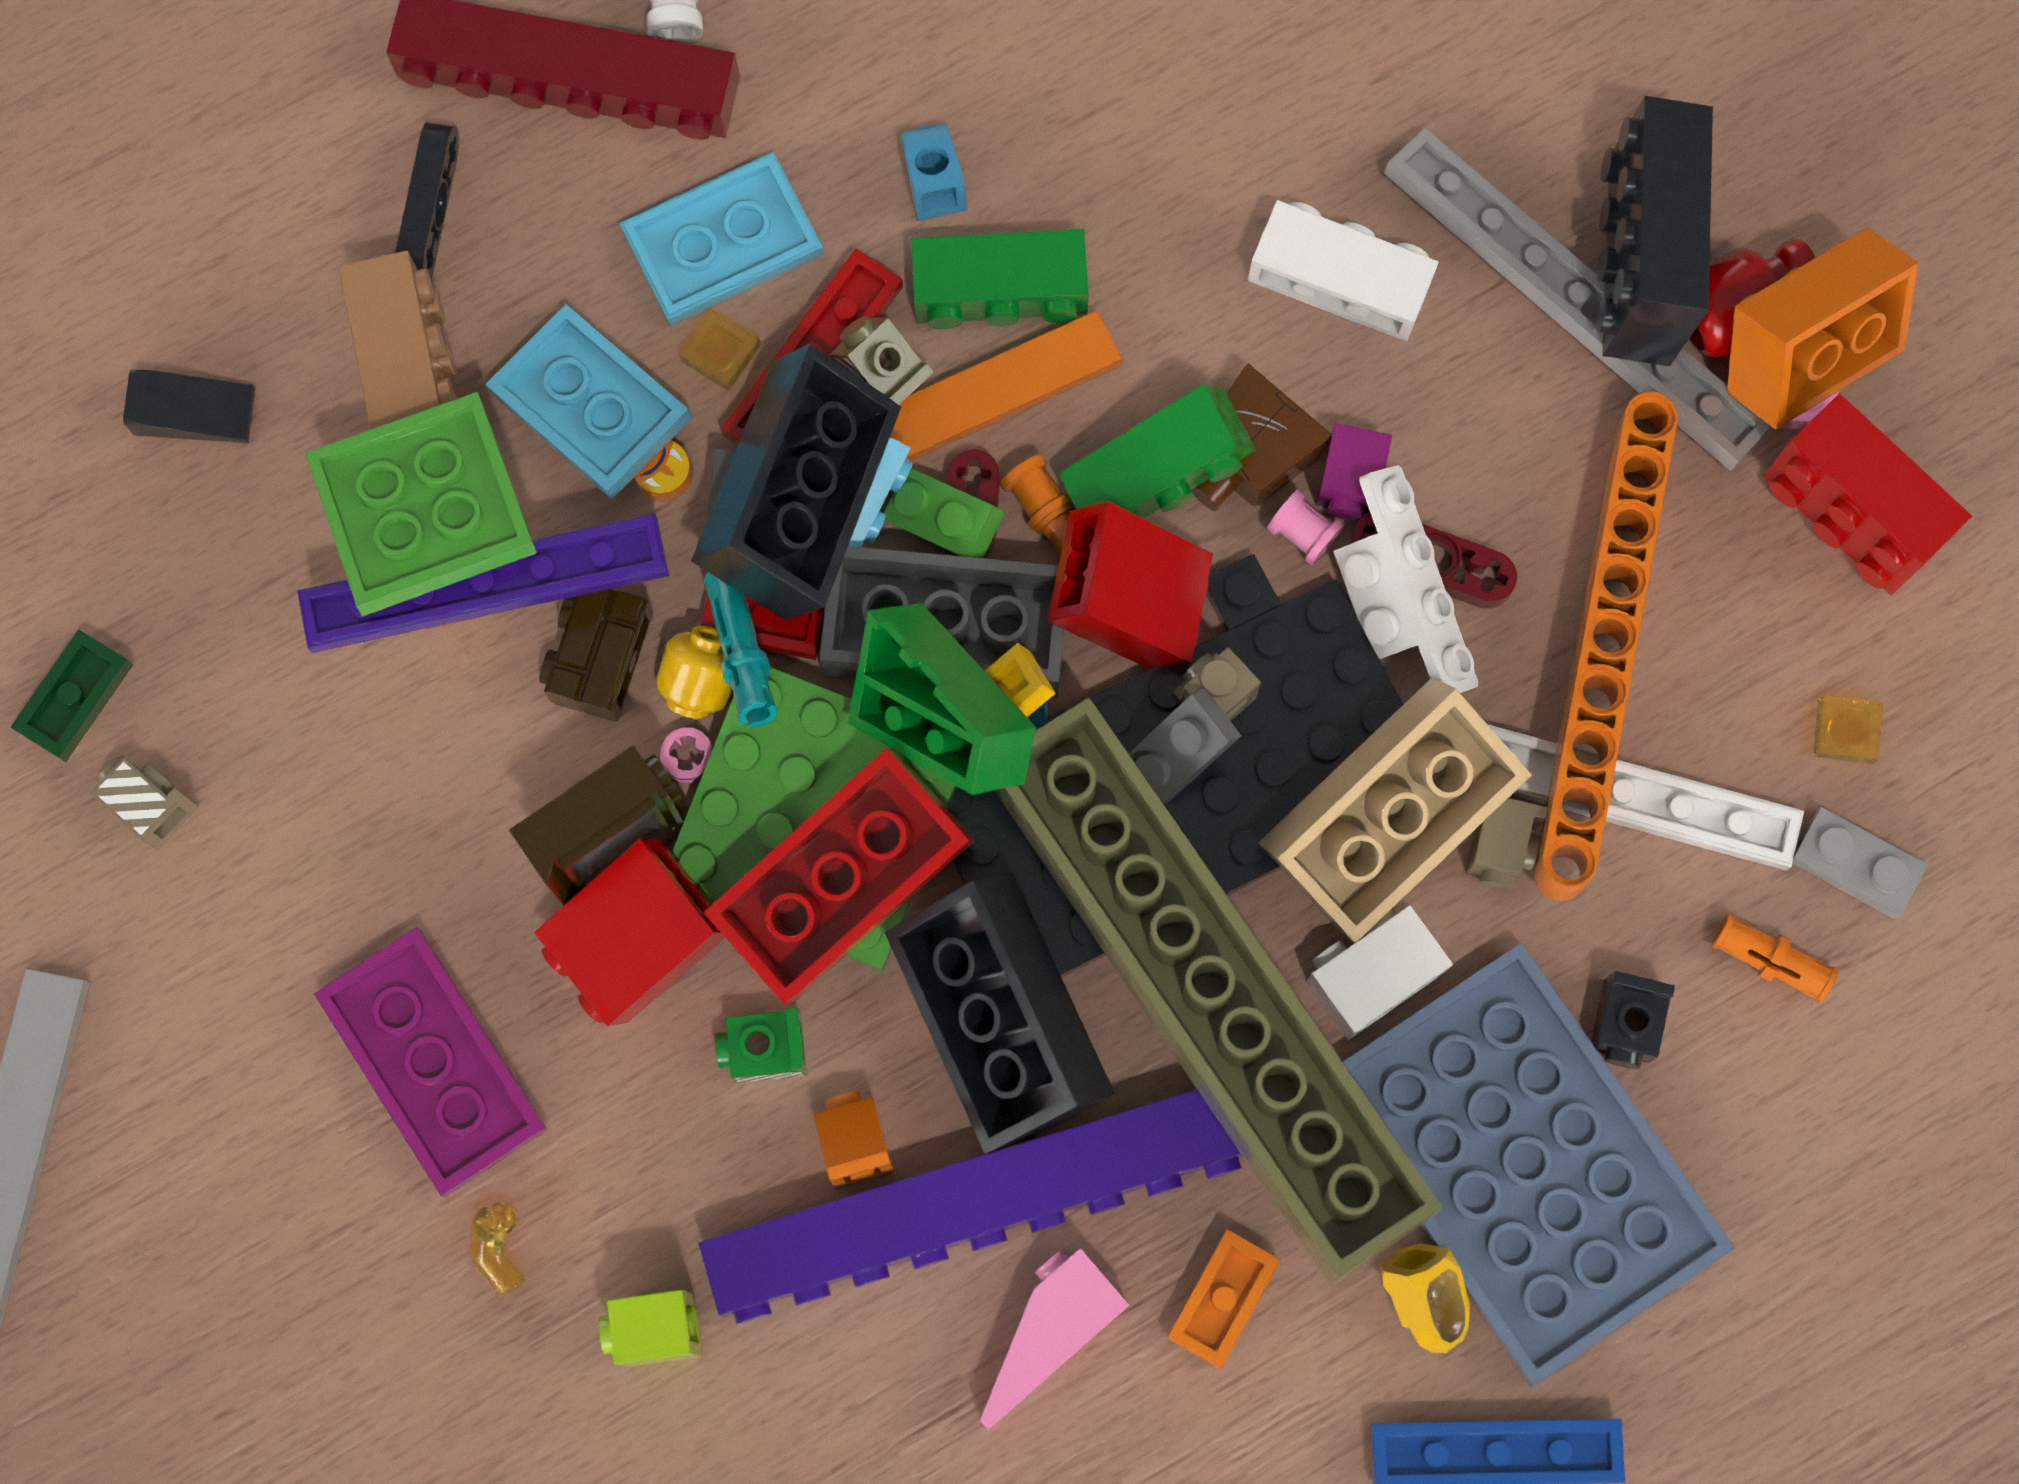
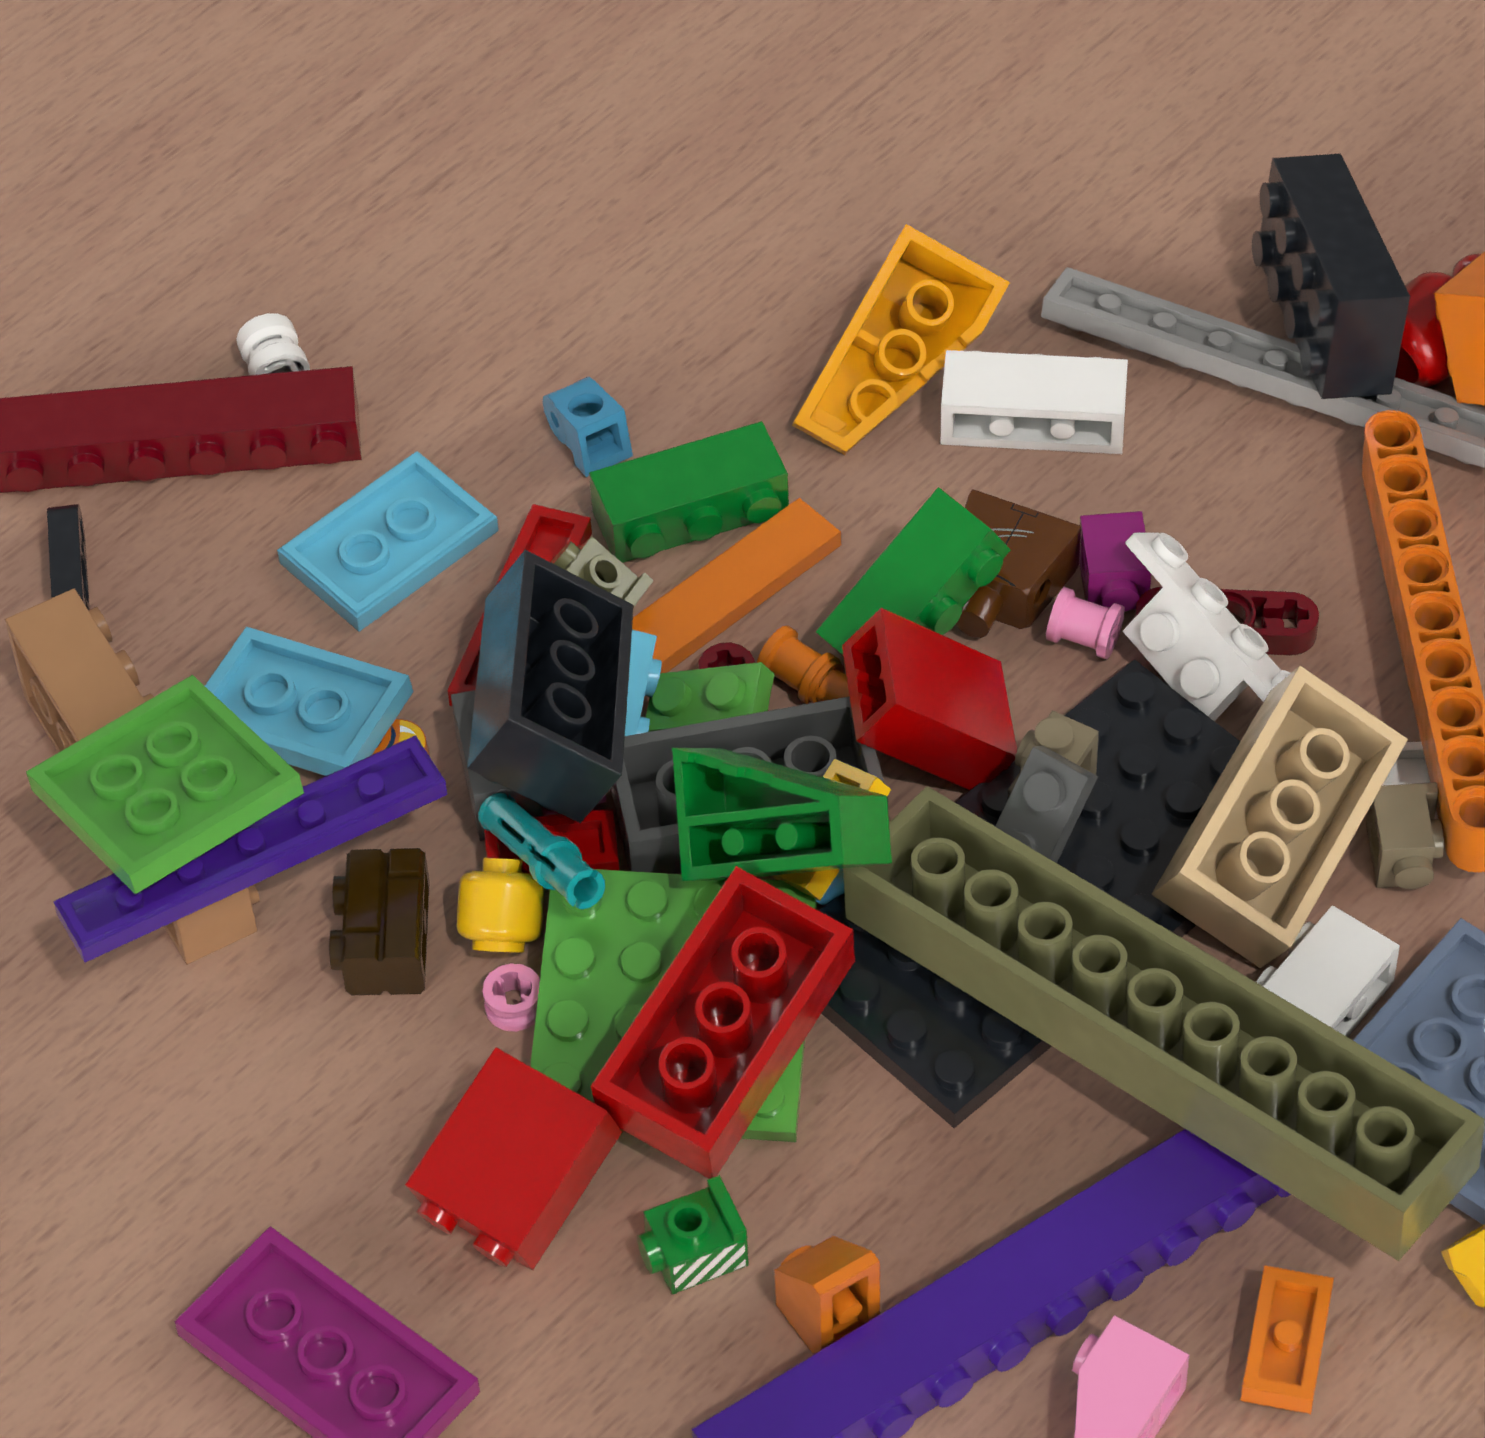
camera: 15 degrees left, 25 degrees down
(599, 820) = (443, 1035): dark brown window -> none
(720, 349) = (421, 628): clear yellow plate -> none
(998, 1012) = (939, 1114): black brick -> none
(1241, 593) = (1039, 693): black plate -> none
(1257, 151) = (899, 338): none -> light orange wedge

